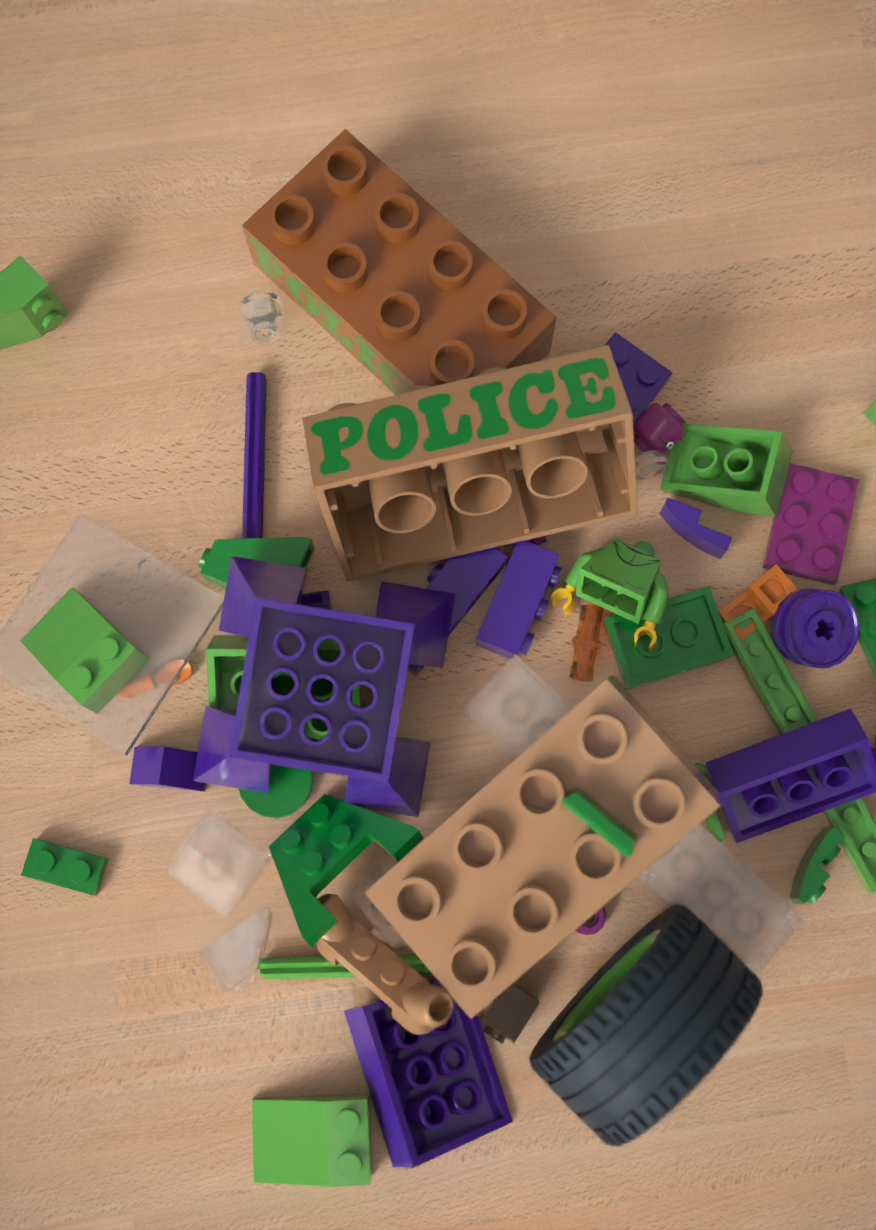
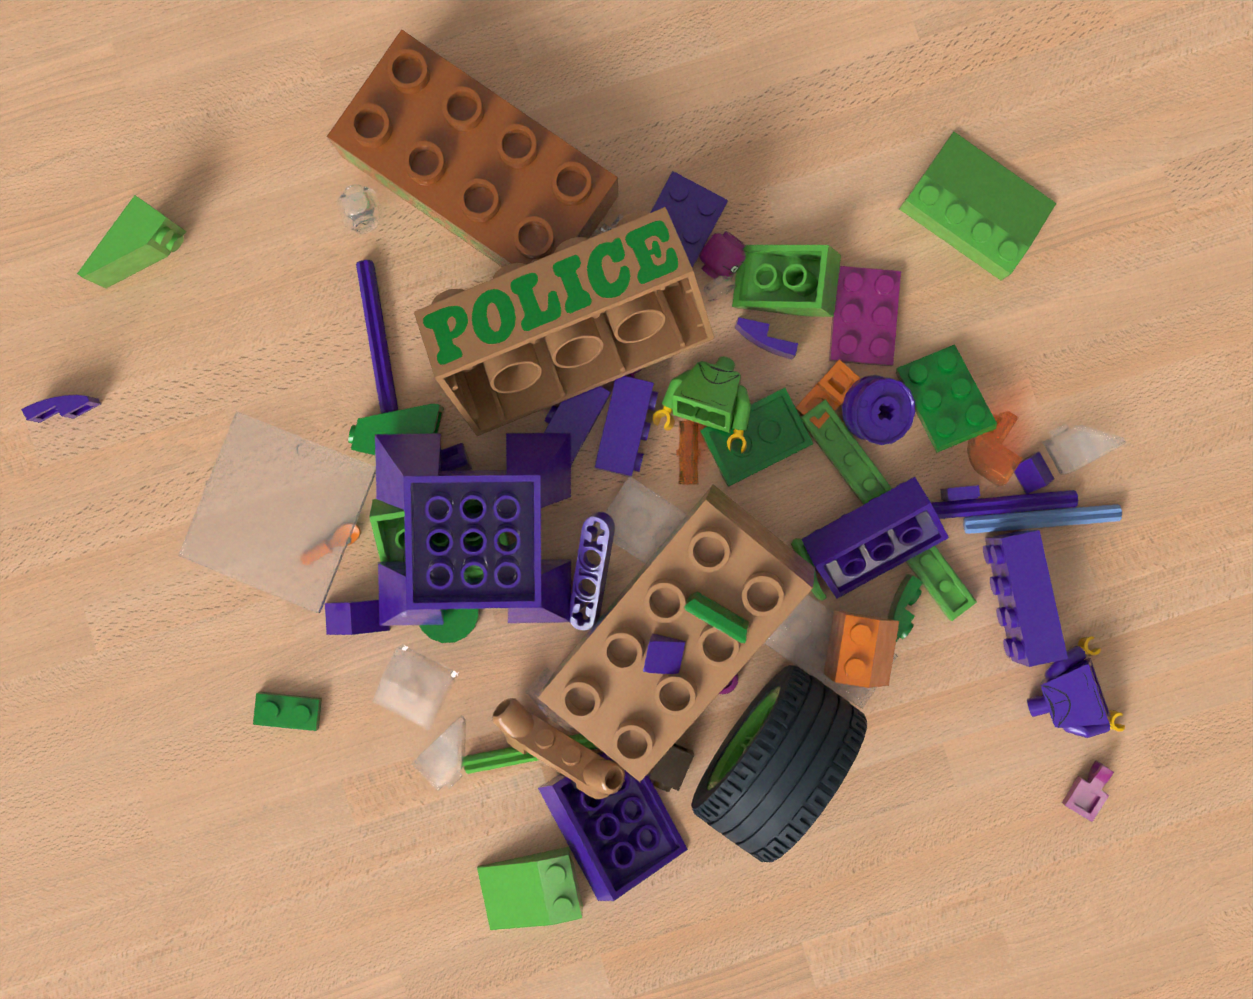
camera: 10 degrees left, 10 degrees up
(84, 651) = (265, 532): bright green slope -> none
(322, 846) = (497, 660): green wing -> none
(456, 760) = (587, 570): none -> dark purple beam
(527, 860) = (664, 655): none -> dark purple slope
(763, 898) = (861, 649): none -> orange slope

